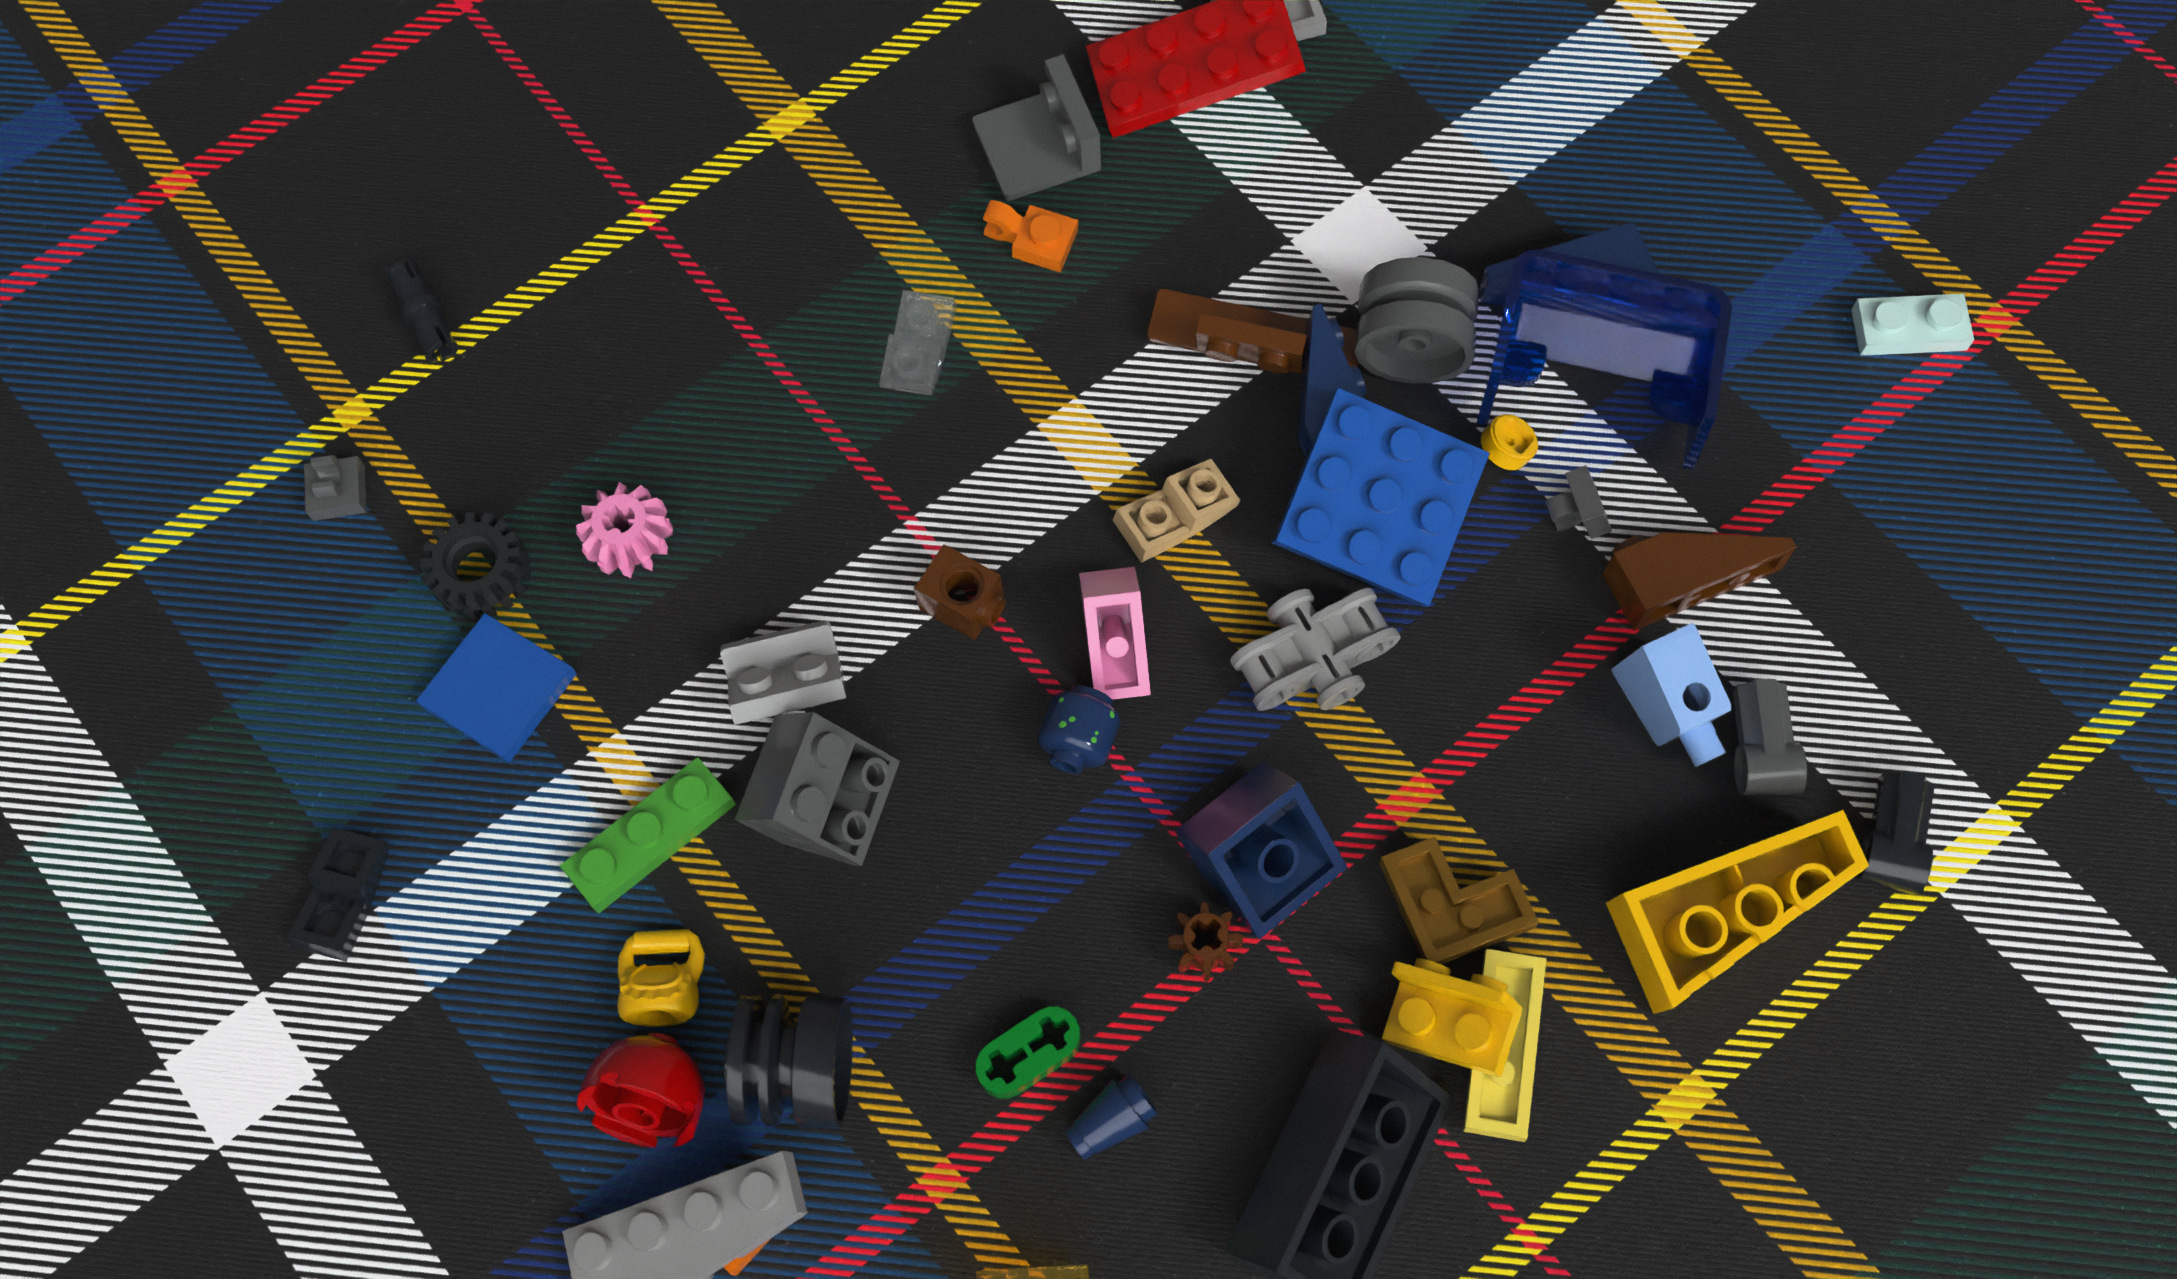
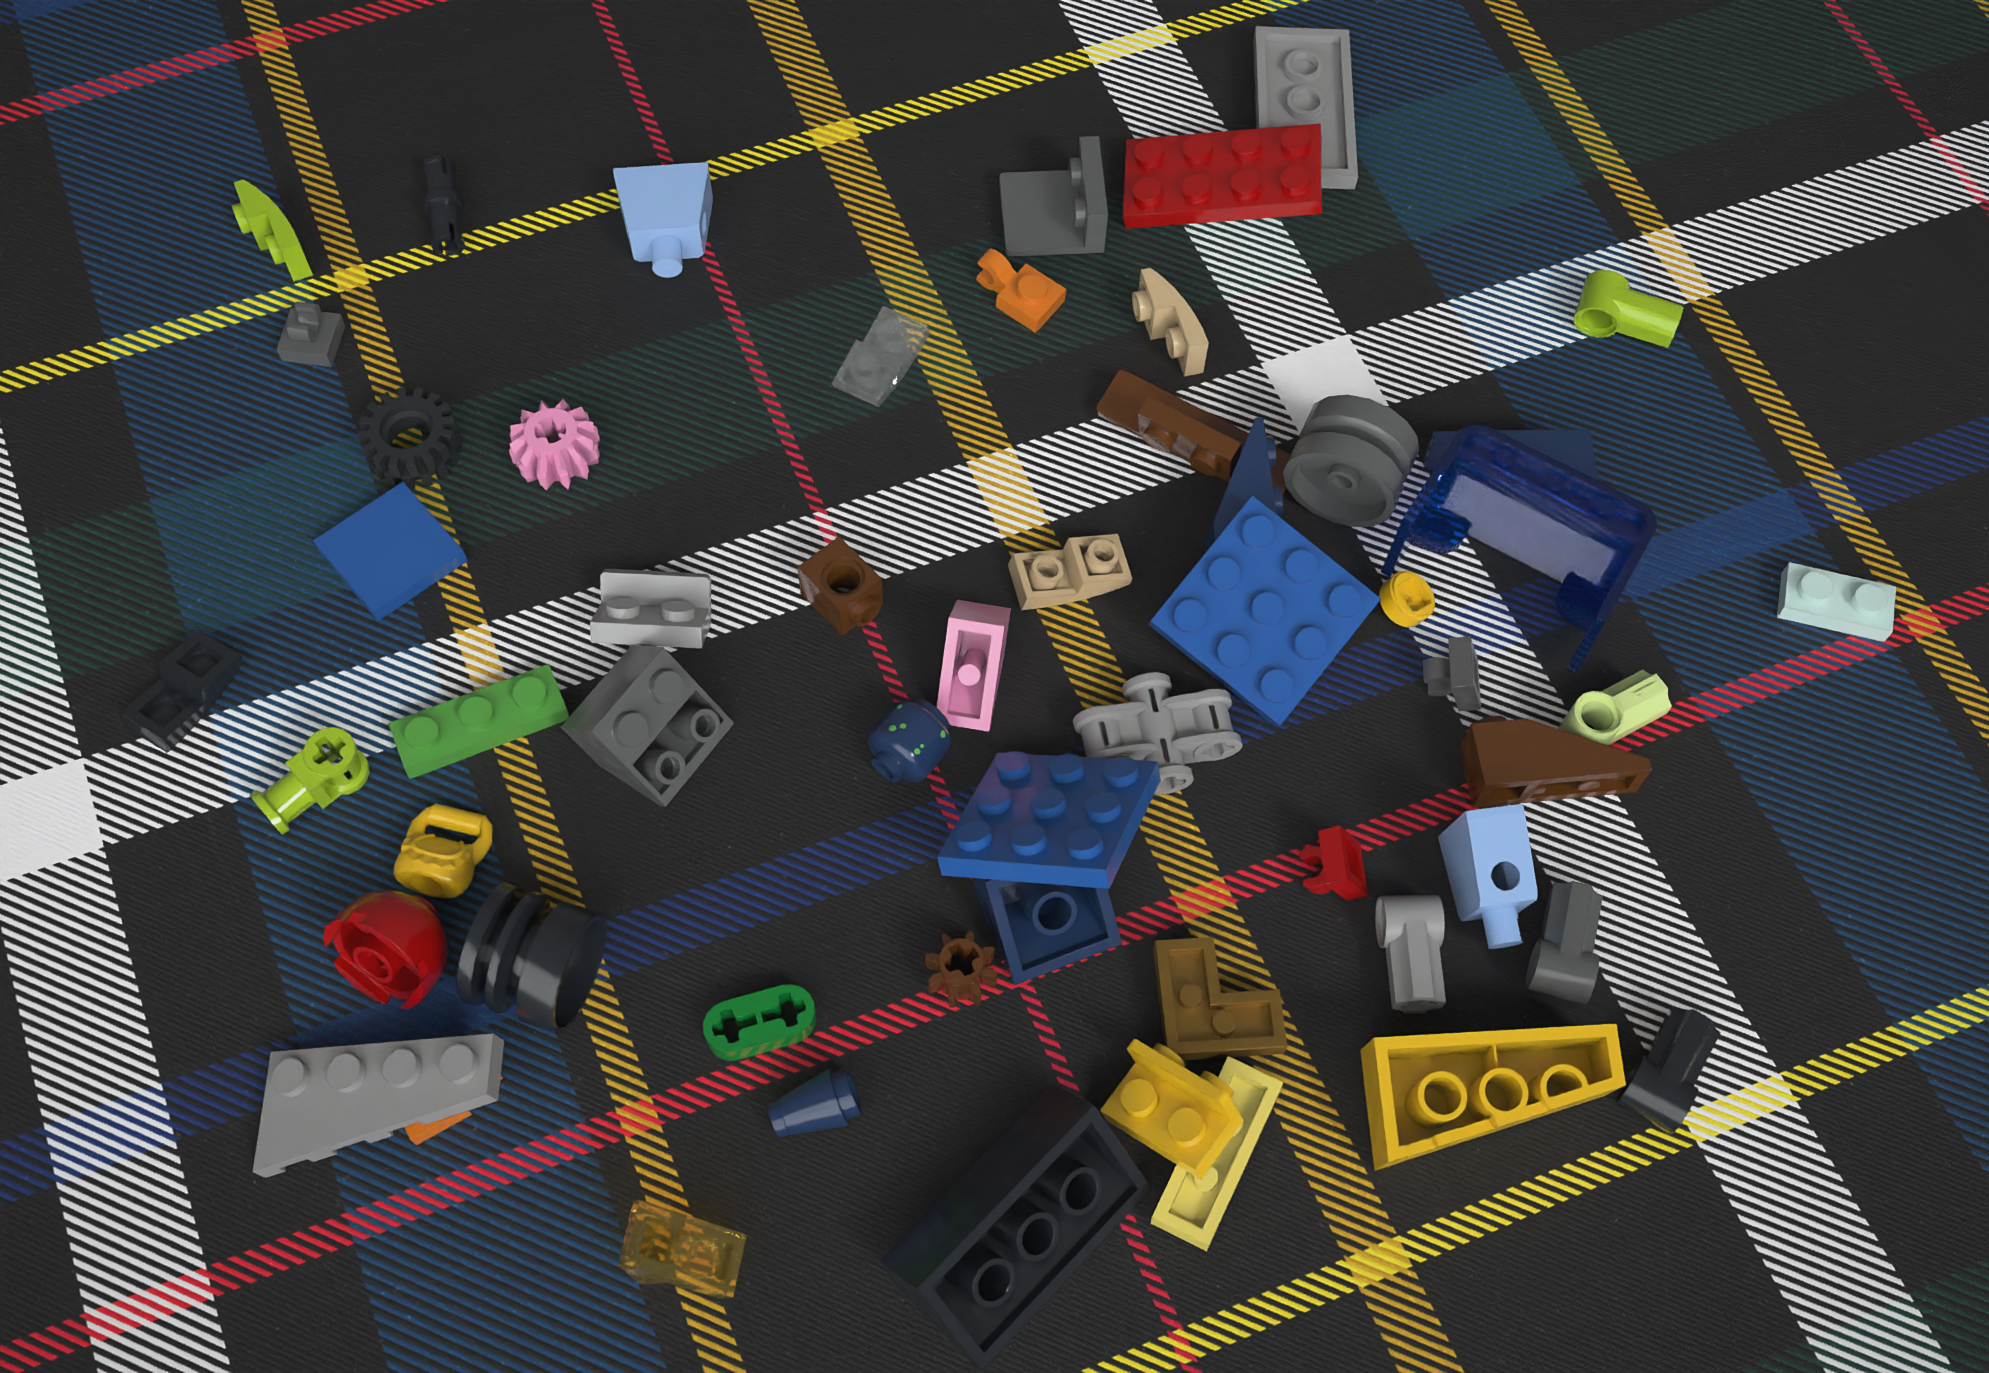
camera: 10 degrees right, 5 degrees down
(253, 387) = (270, 228): none -> lime slope
(505, 945) = (314, 777): none -> lime connector
(650, 255) = (665, 212): none -> light blue torso
(1189, 218) = (1170, 317): none -> tan slope
(1248, 771) = (1051, 819): none -> blue plate
(1531, 726) = (1341, 863): none -> red tile
(1613, 87) = (1612, 307): none -> lime piece
(1620, 776) = (1412, 934): none -> light grey piece
(1743, 495) = (1618, 708): none -> yellowish green piece

